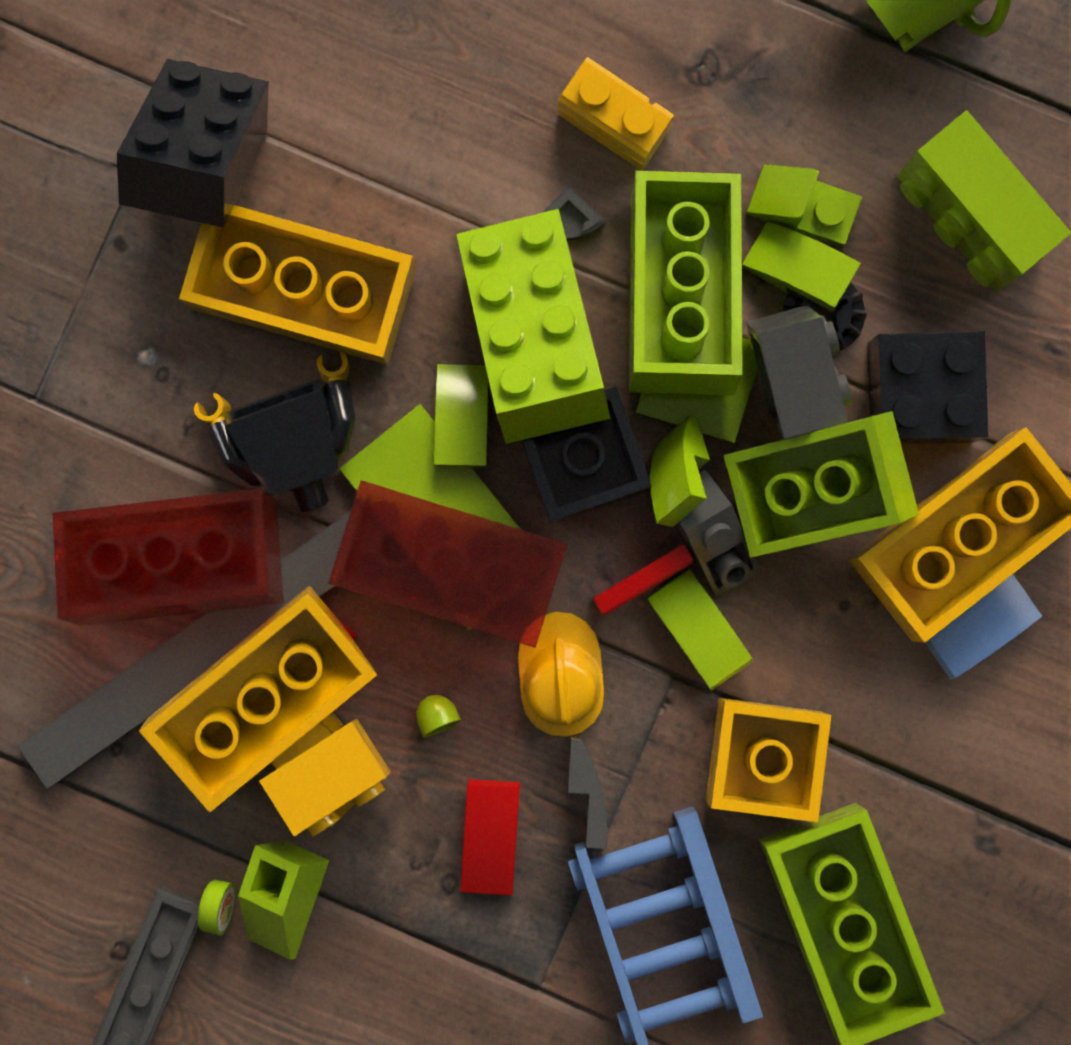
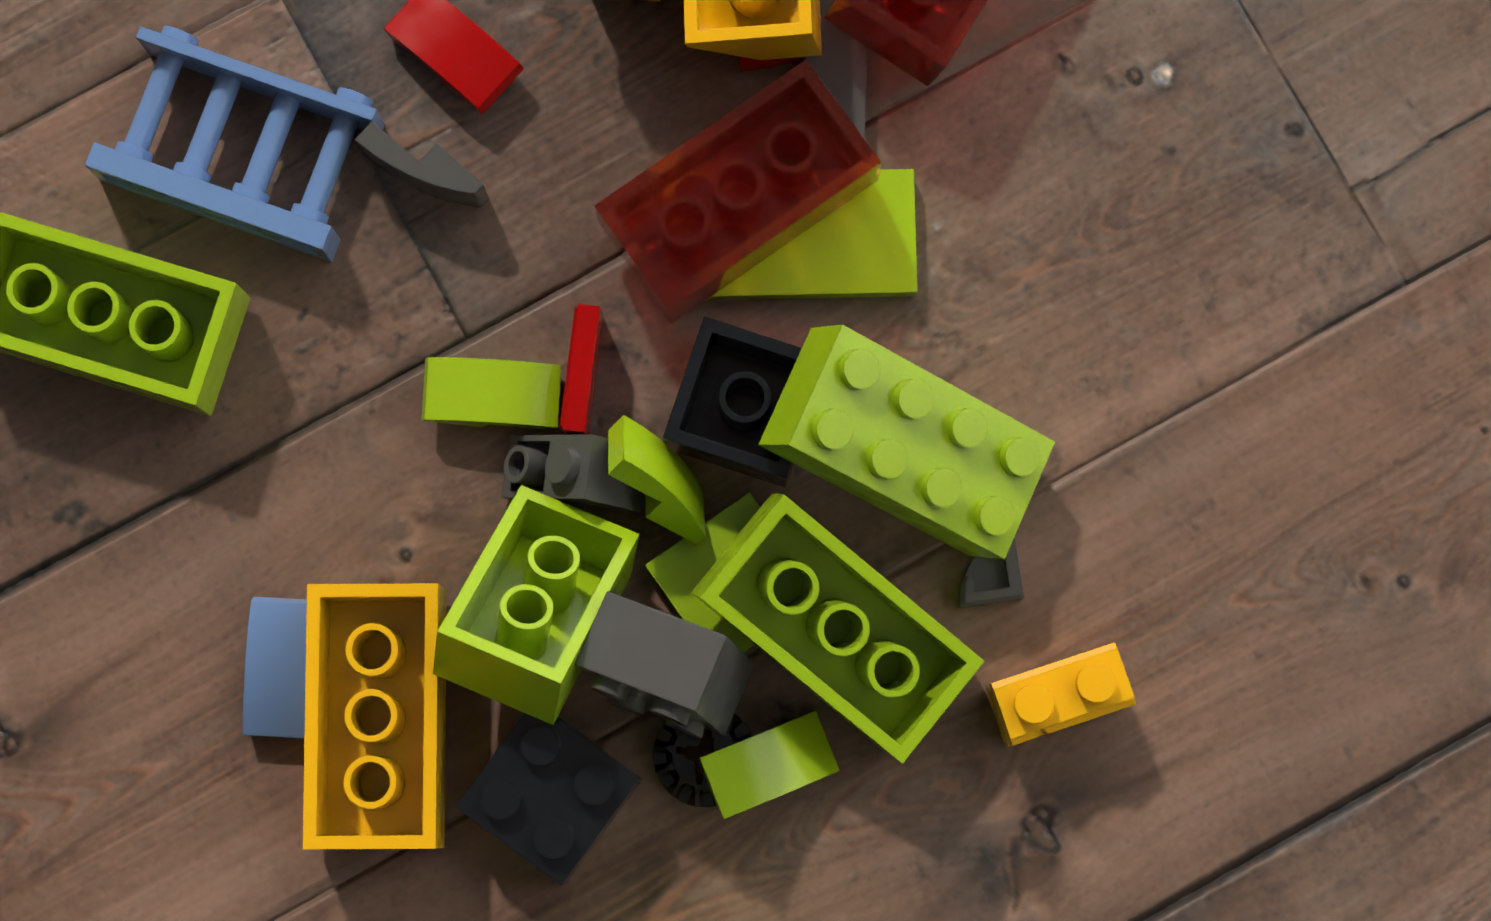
camera: 125 degrees right, 5 degrees down
(193, 143) = (1335, 253): black brick -> none
(287, 437) = (980, 140): black torso -> none
(300, 283) = (1122, 259): yellow brick -> none
(436, 715) = (607, 84): lime hinge -> none
(461, 416) = (871, 309): lime slope -> none
(562, 676) = (551, 233): yellow piece -> none
(768, 760) = (317, 355): yellow brick -> none
(803, 204) = (827, 819): lime slope -> none

